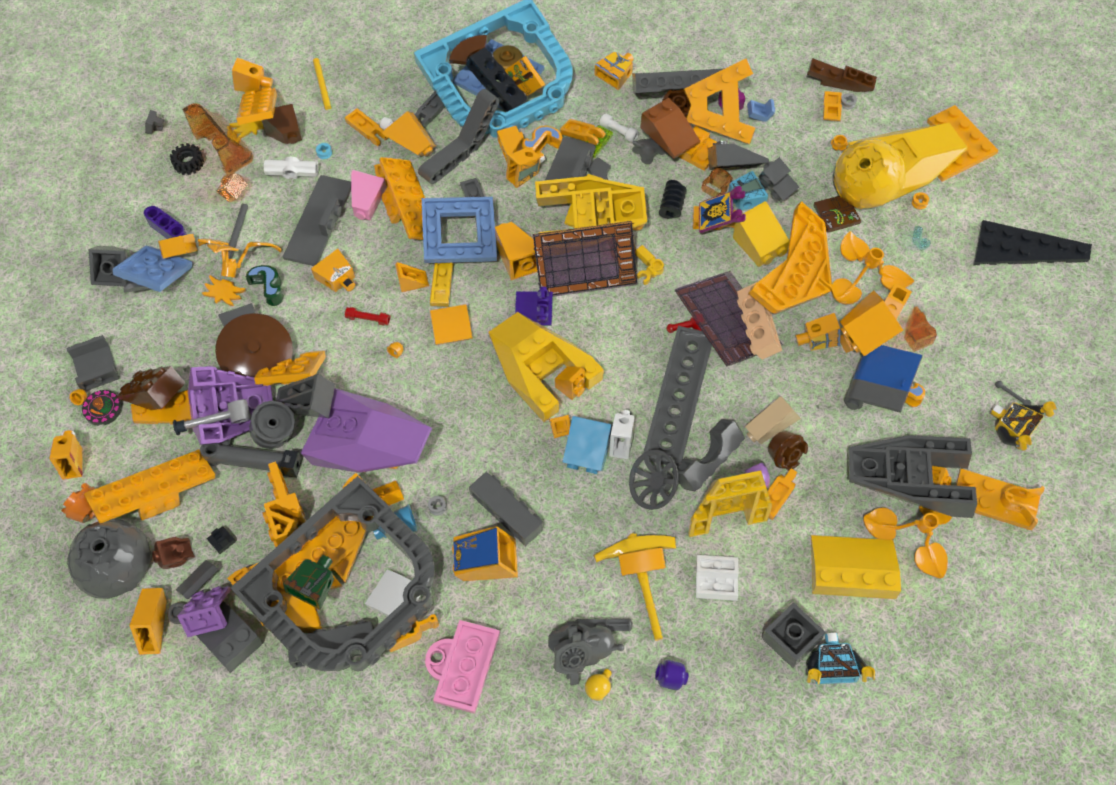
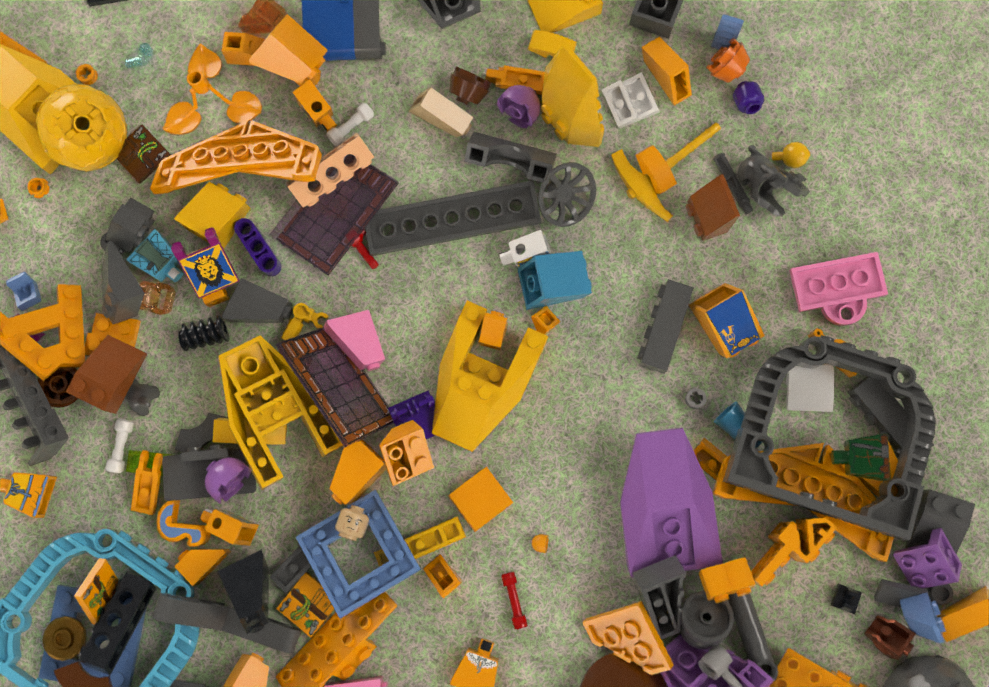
camera: 110 degrees left, 20 degrees up
(170, 577) = (922, 617): none -> medium blue slope
(289, 445) = (727, 579): none -> light orange brick
(443, 189) = (307, 605): none -> light orange tile
(471, 155) = (248, 590): none -> black slope
(479, 227) = (352, 523): none -> tan head
(511, 281) = (406, 452): none -> light orange slope
(557, 167) = (225, 478): none -> medium lavender cylinder
(581, 587) = (713, 209): none -> dark orange slope
(614, 290) = (357, 339): none -> bright pink slope
(677, 240) = (256, 305): none -> dark grey slope
(711, 670) = (729, 61): none -> orange cone
(722, 256) = (251, 240): none -> dark purple beam
(729, 615) = (668, 69): none -> light orange slope
(740, 683) = (727, 29): none -> medium blue slope
(796, 534) = (548, 43): none -> yellow slope
(800, 369) = (363, 113): none -> white piece

